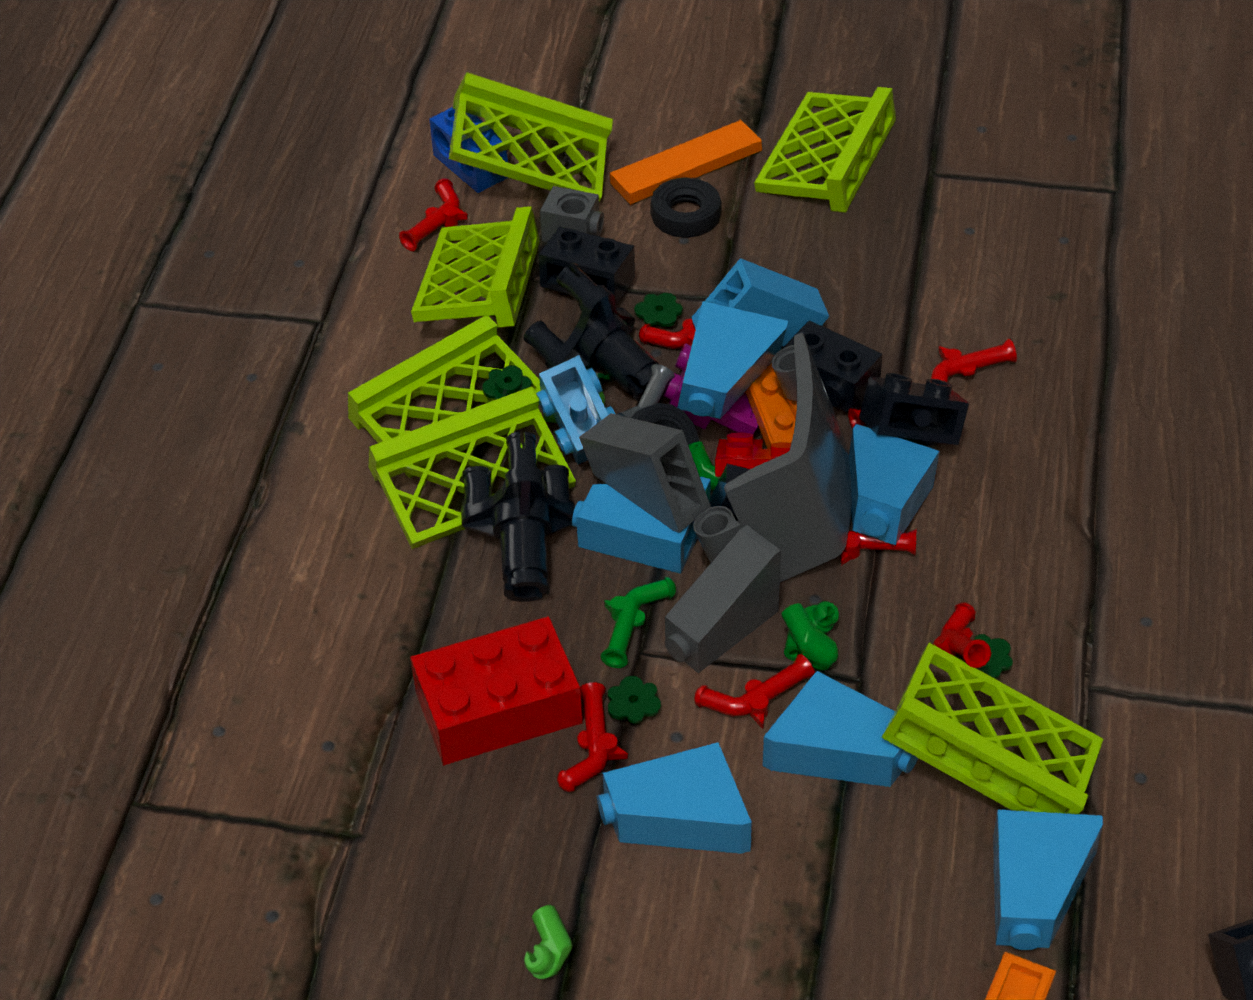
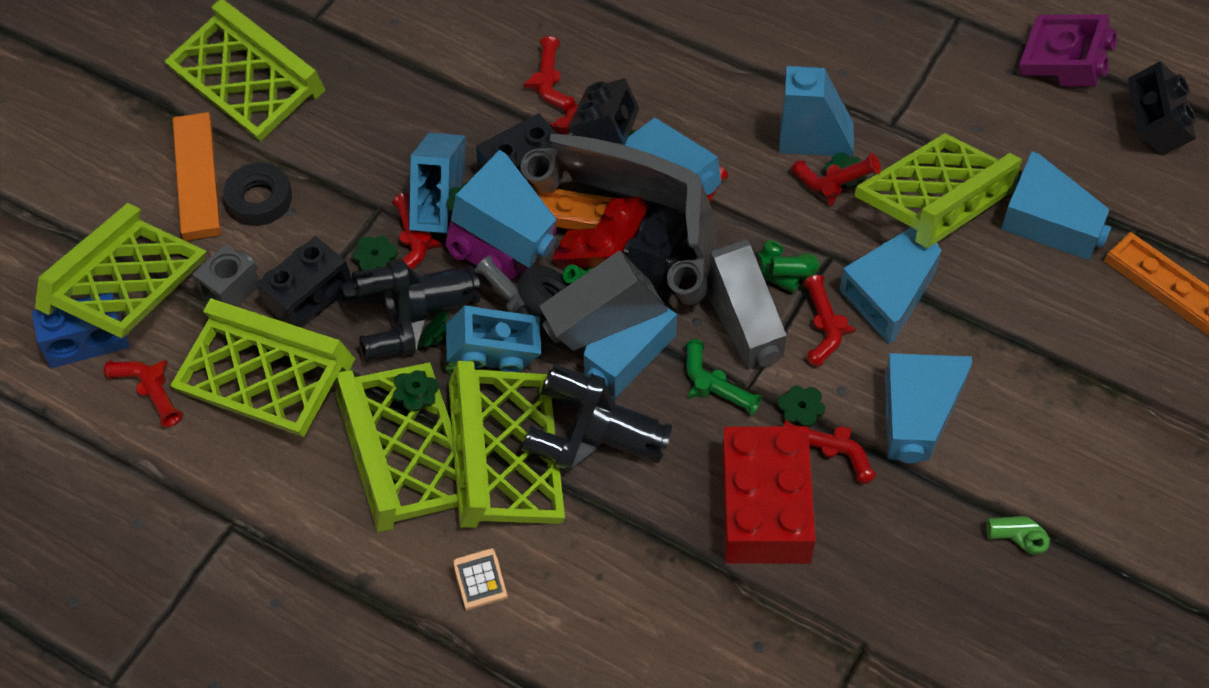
camera: 70 degrees left, 10 degrees up
(320, 501) = (480, 579): none -> slope
(1026, 586) = (813, 115): none -> dark azure slope

